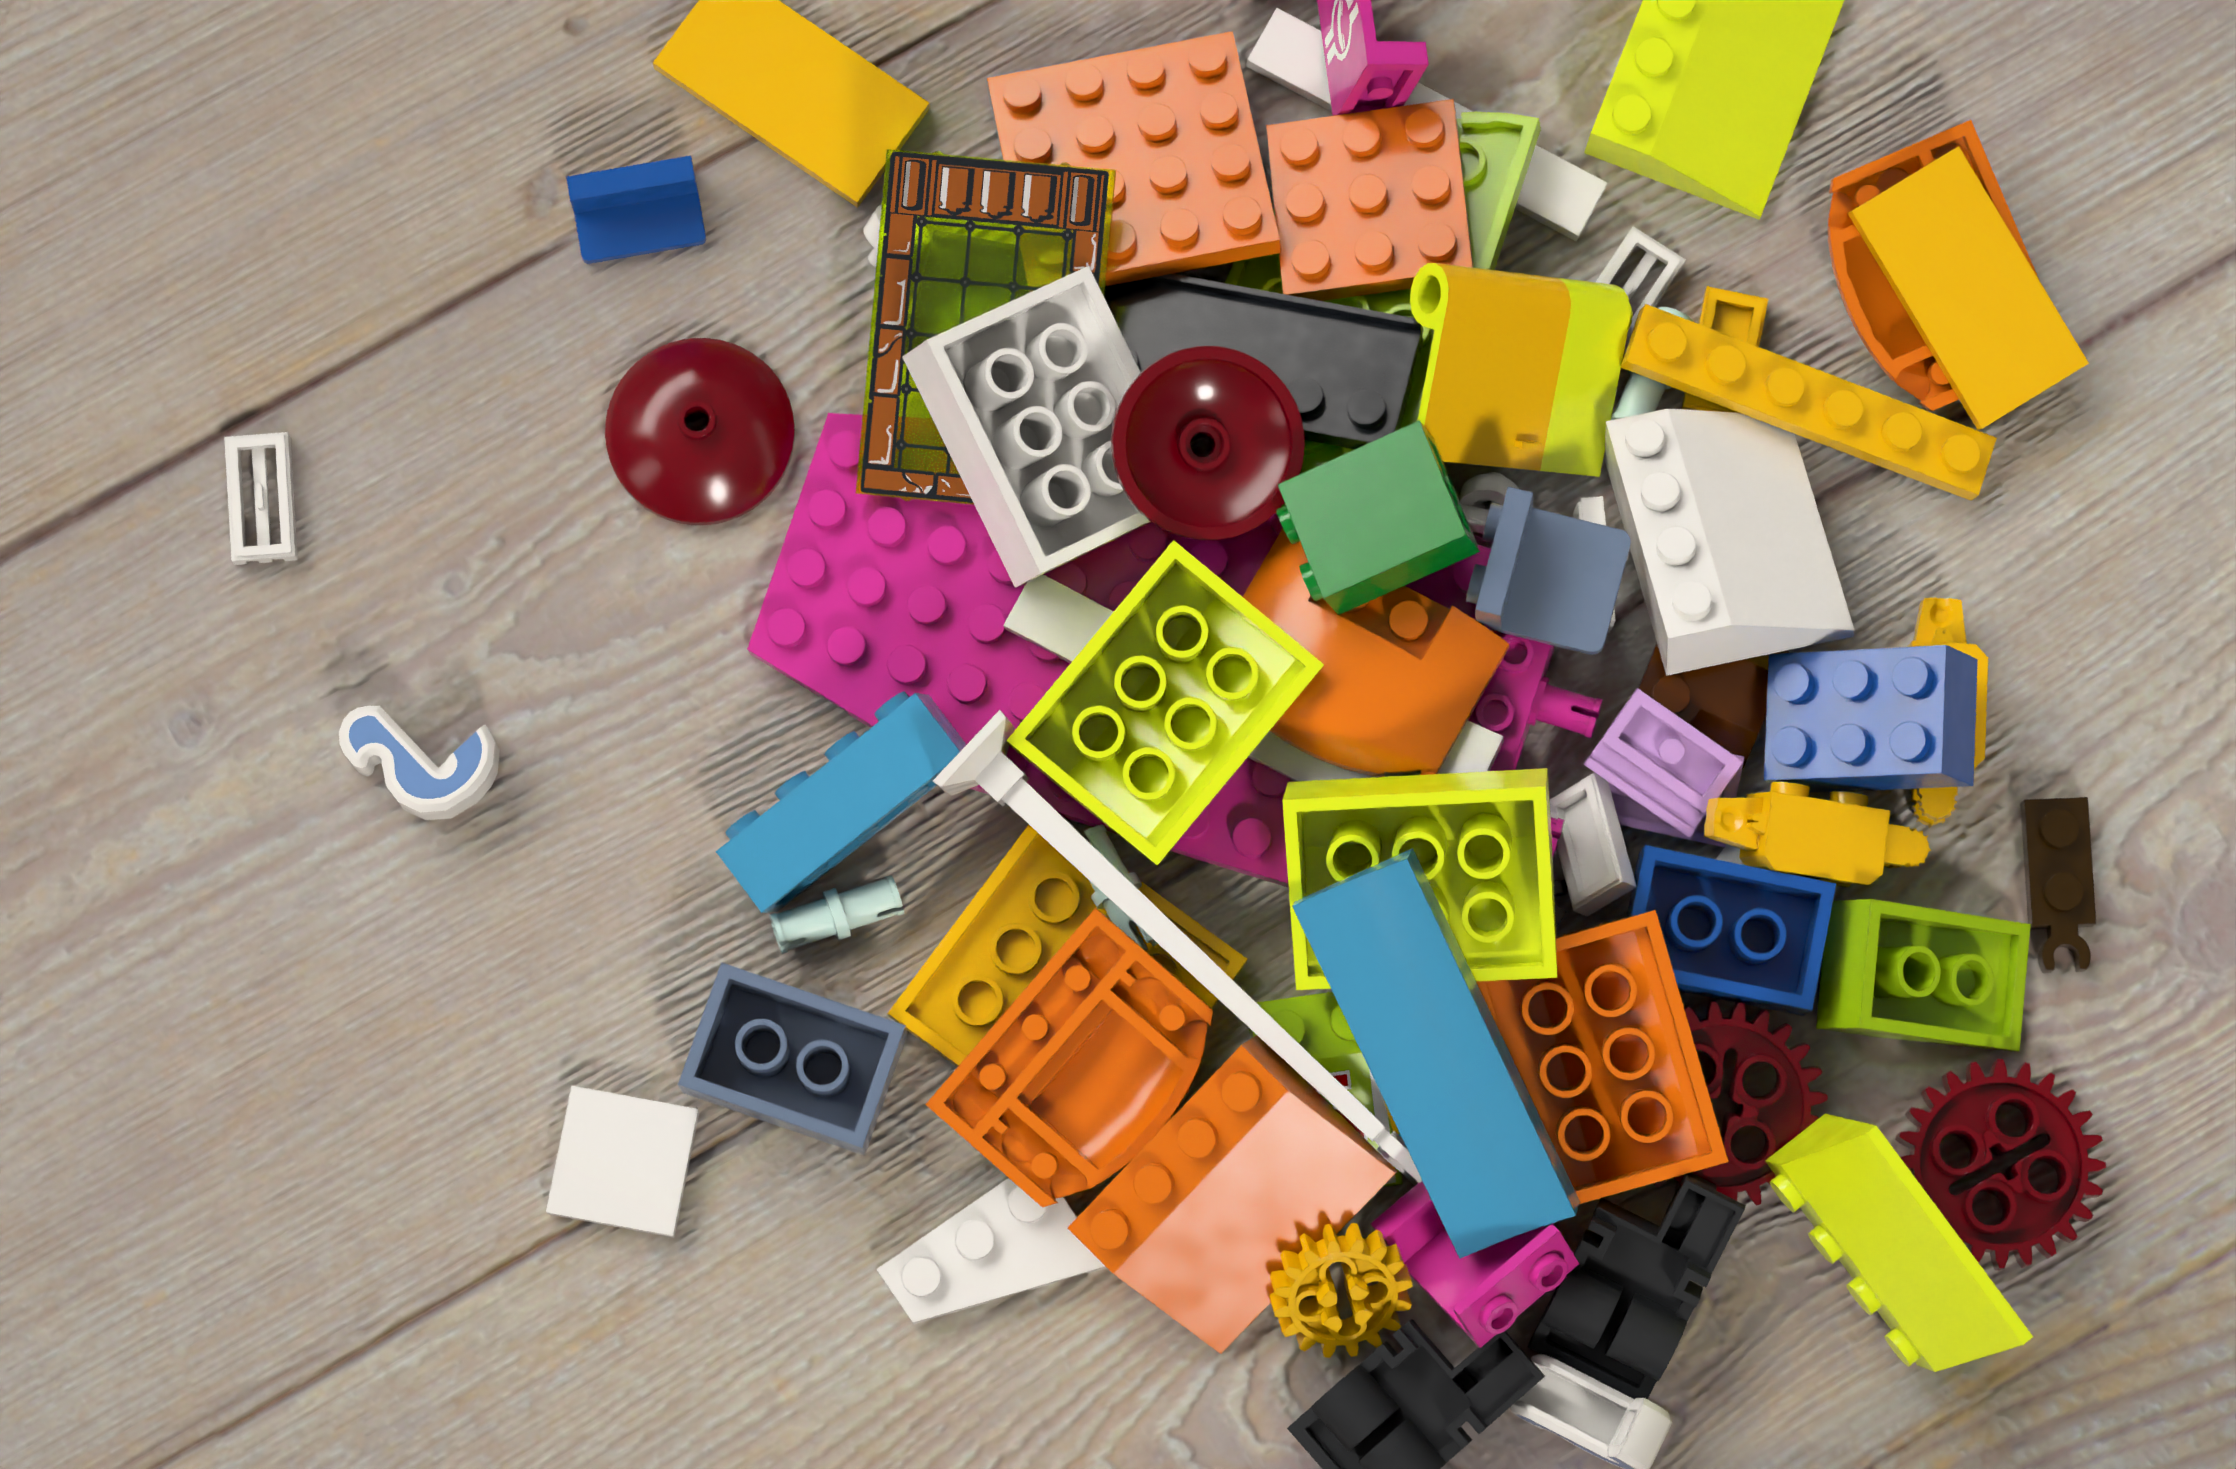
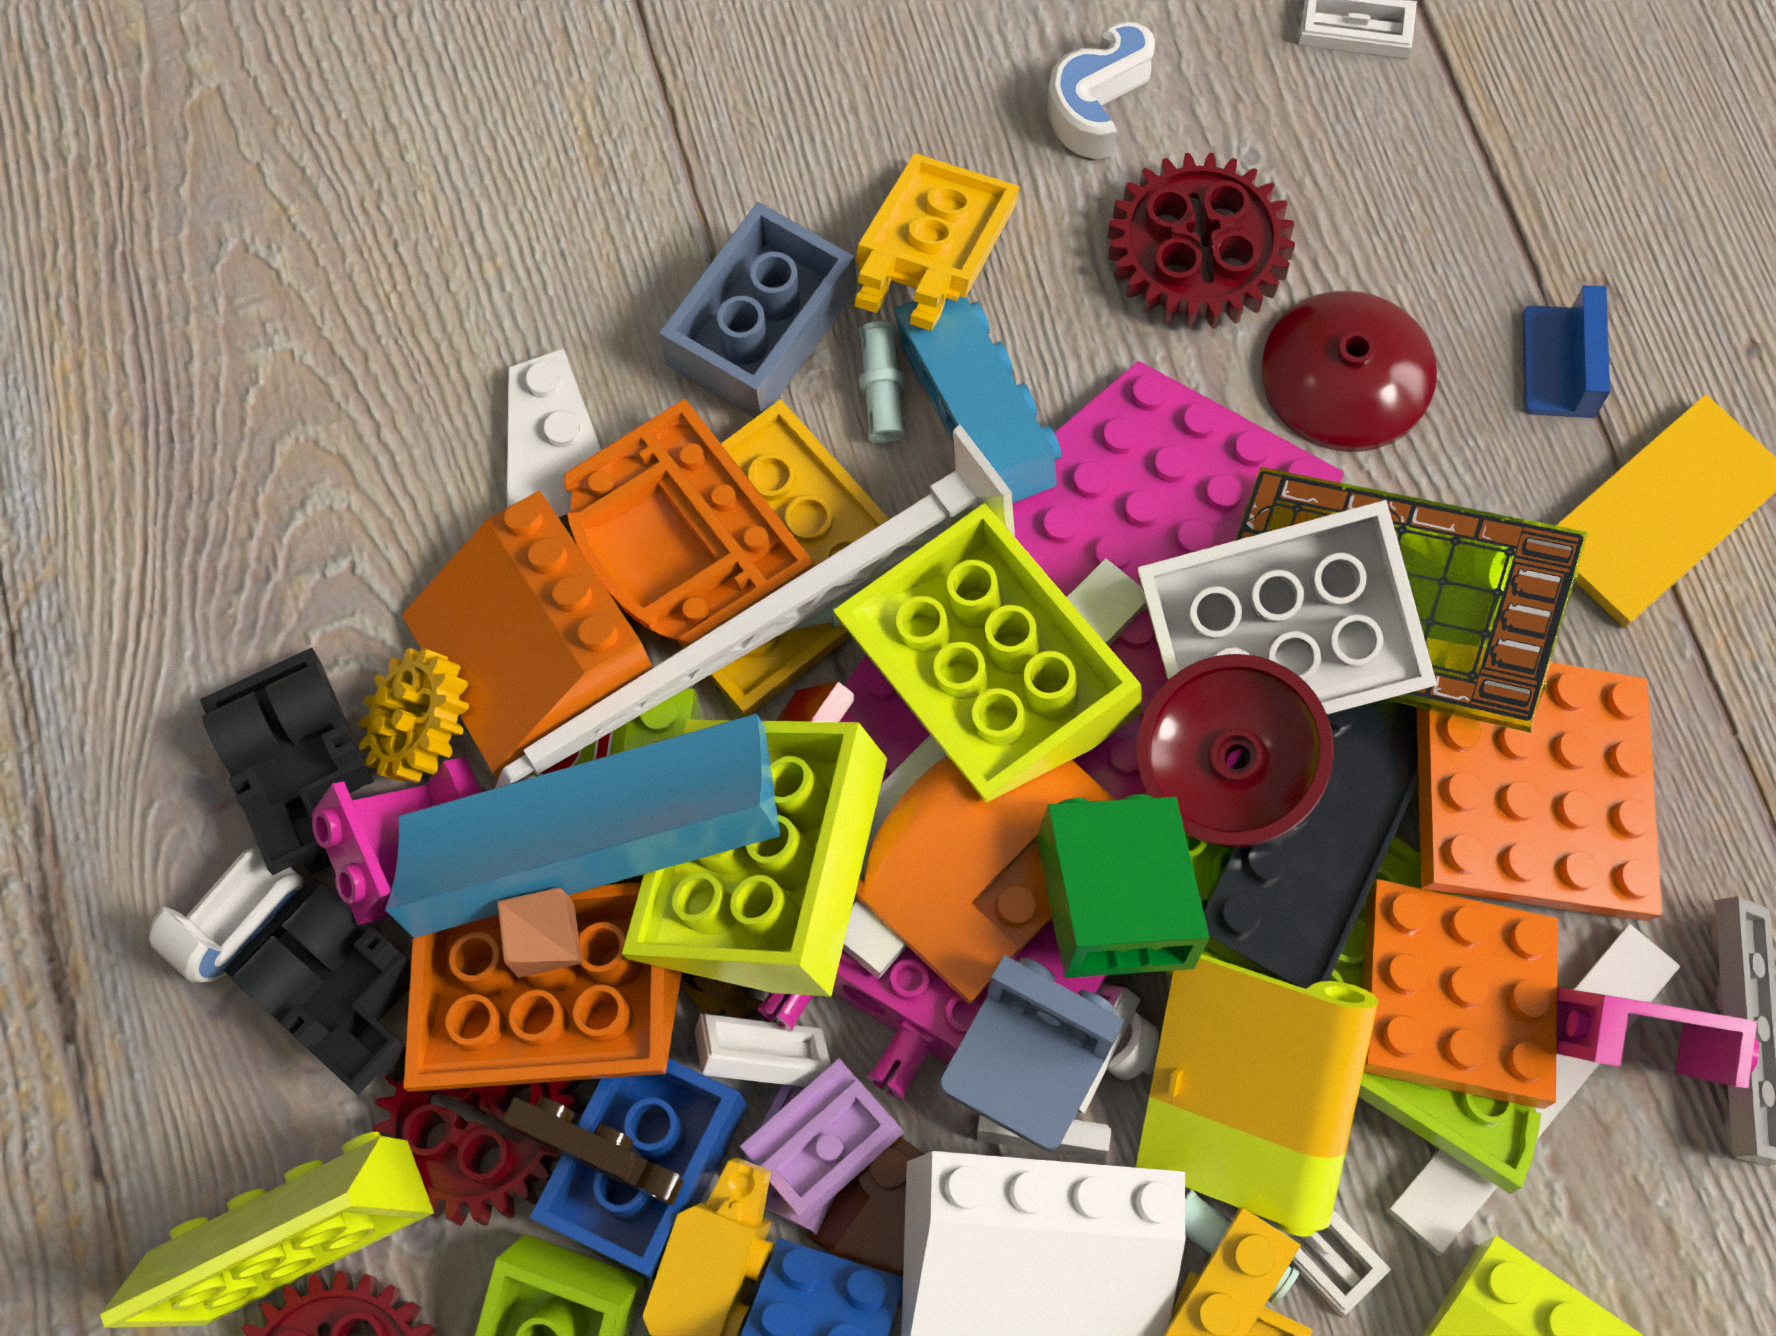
camera: 110 degrees right, 10 degrees down
(569, 557) = (1253, 235): none -> dark red gear
(622, 1161) = (715, 176): white tile -> none
(658, 892) = (932, 236): none -> yellow tile
(1245, 884) = (818, 704): none -> red tile
(1554, 1065) = (539, 932): none -> nougat slope
(1741, 949) = (602, 1151): none -> dark brown plate

